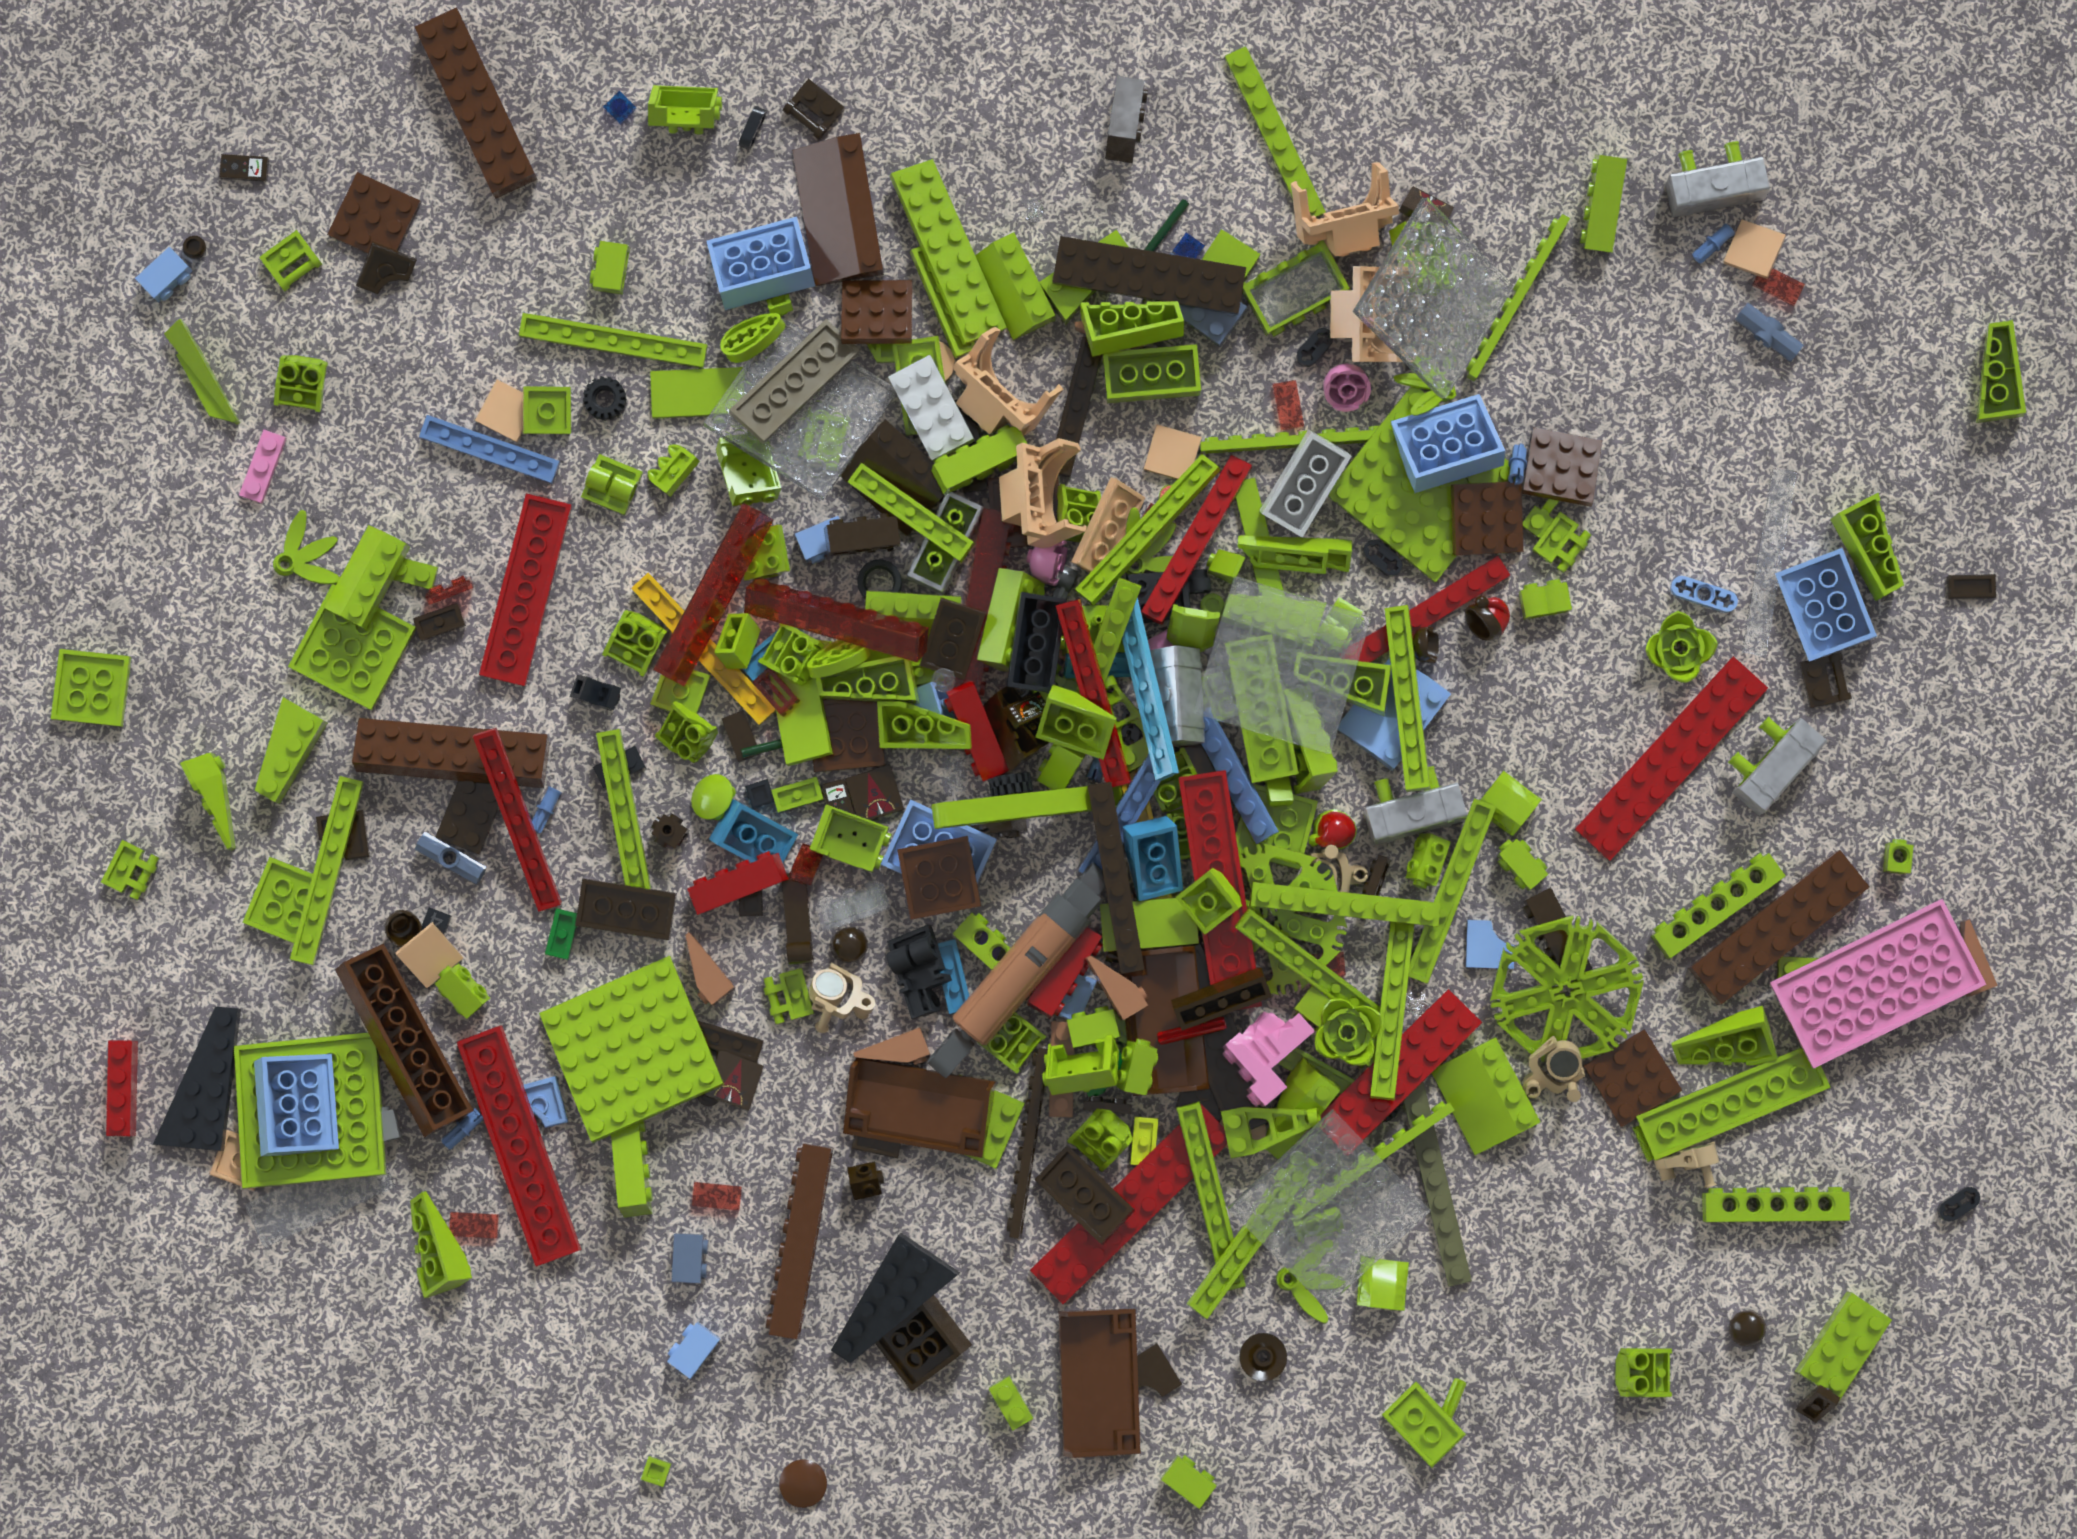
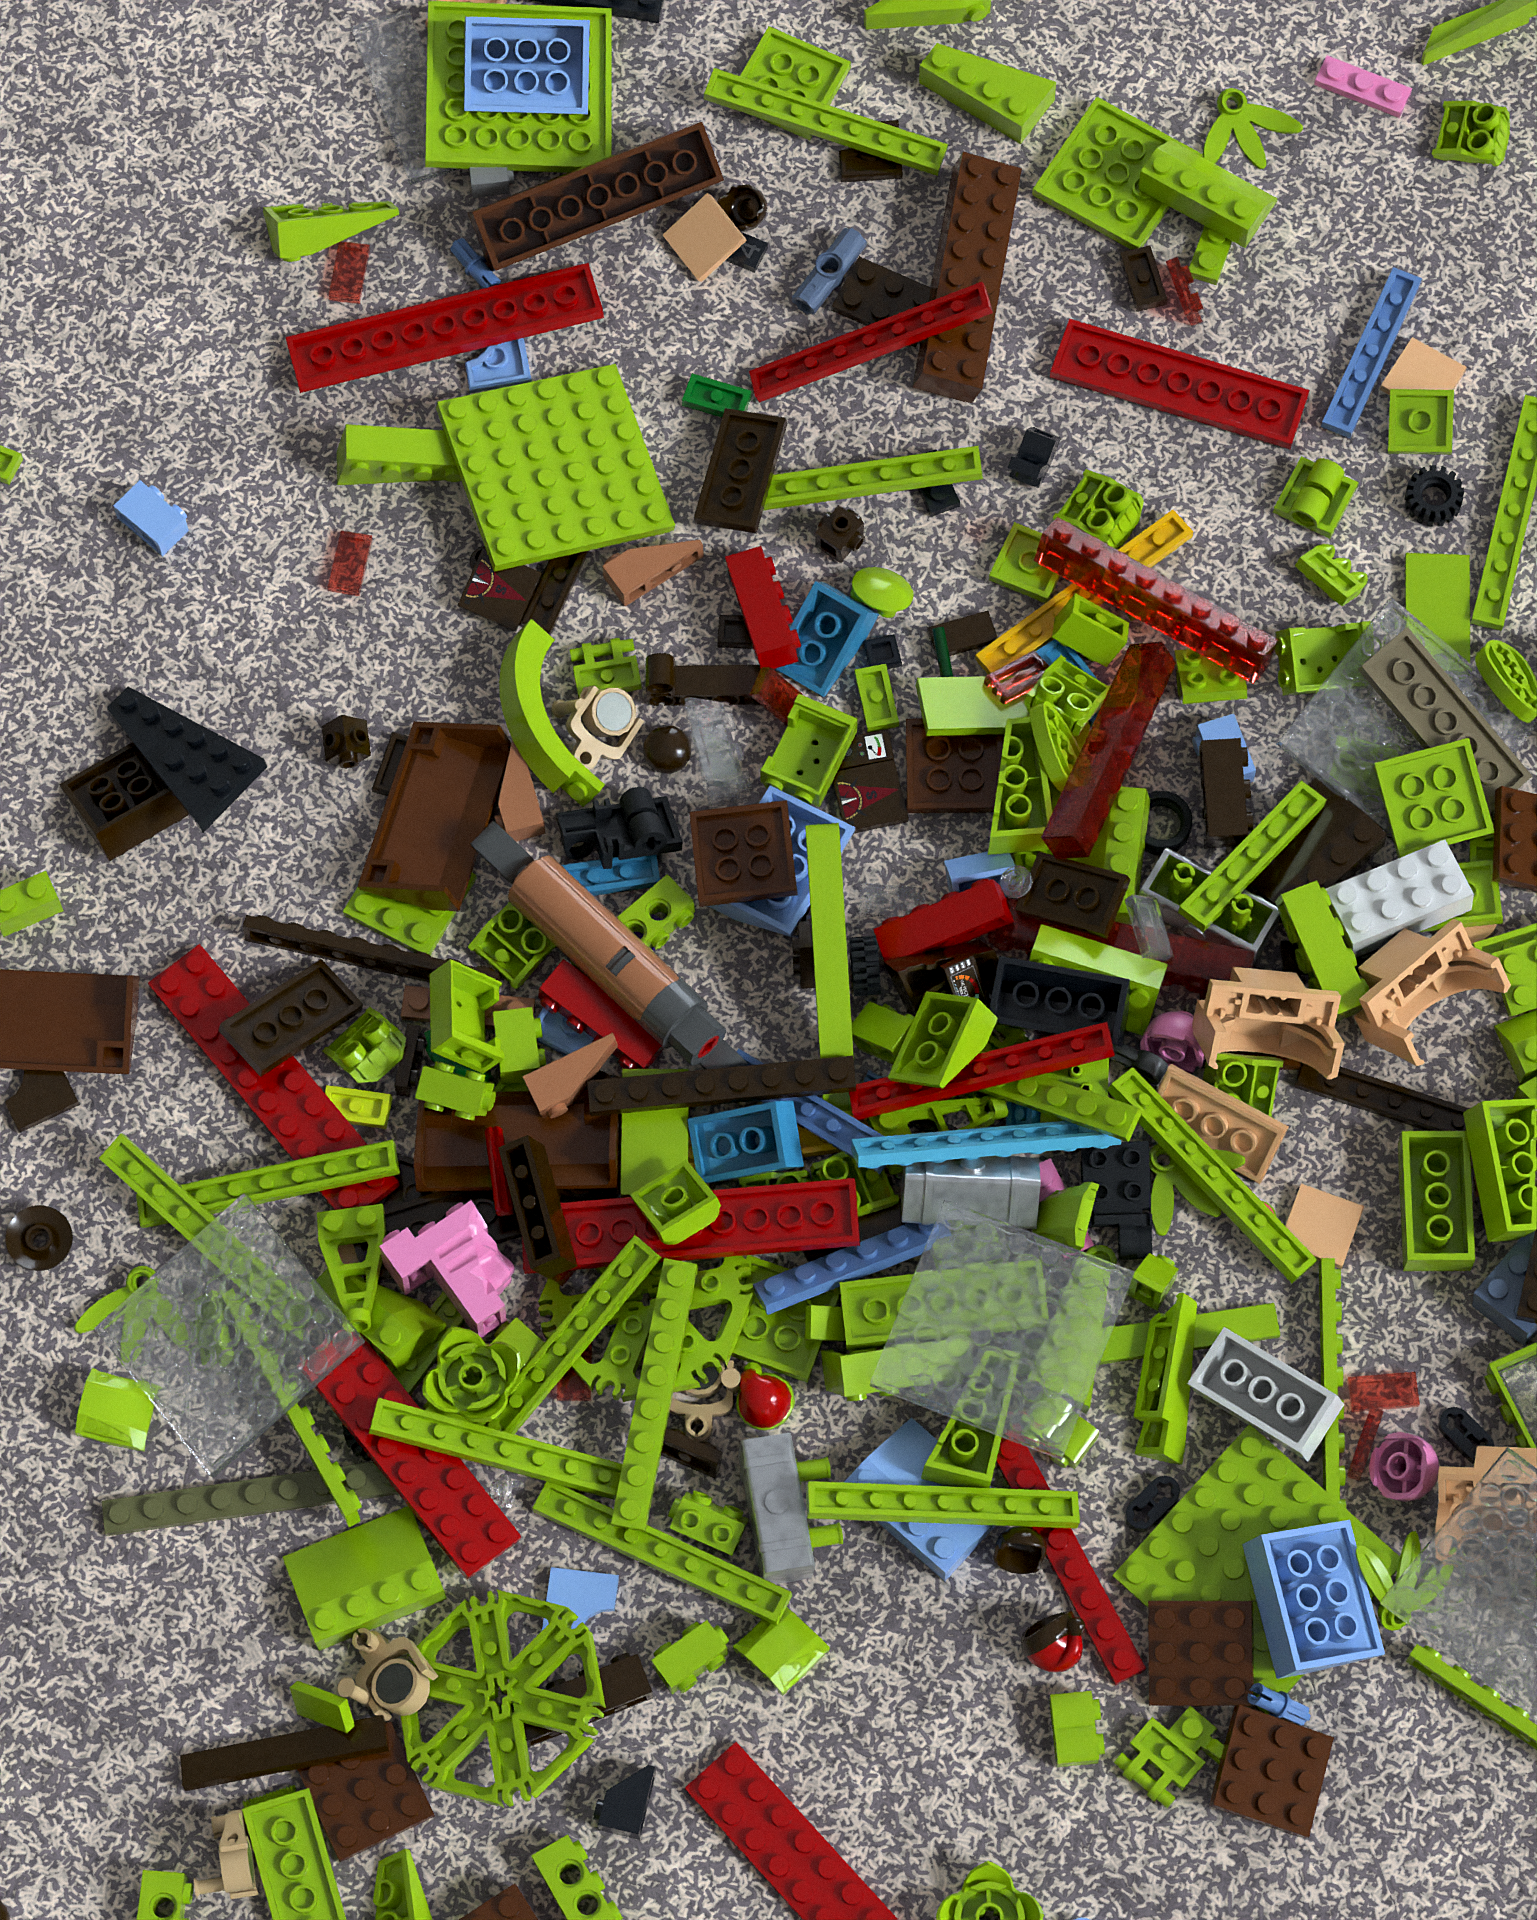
camera: 95 degrees right, 15 degrees down
(461, 990) = (654, 271): lime brick -> none
(545, 809) = (883, 388): medium blue axle -> none
(686, 733) = (970, 564): lime slope -> none
(688, 1258) = (272, 520): sand blue brick -> none
(800, 1241) = (275, 652): reddish brown brick -> none
(835, 1049) = (529, 721): none -> lime arch
(854, 386) = (1433, 797): none -> lime plate
(915, 727) = (951, 842): lime wedge -> none
(973, 582) = (1149, 927): none -> clear tile
(1196, 540) = (1195, 1240): red plate -> none
(1328, 415) = (1365, 1443): none -> clear red tile
(1582, 1112) = (322, 1706): none -> lime tile
(1614, 1136) = (282, 1753): none -> dark brown tile
(1626, 898) = (626, 1804): none -> black slope

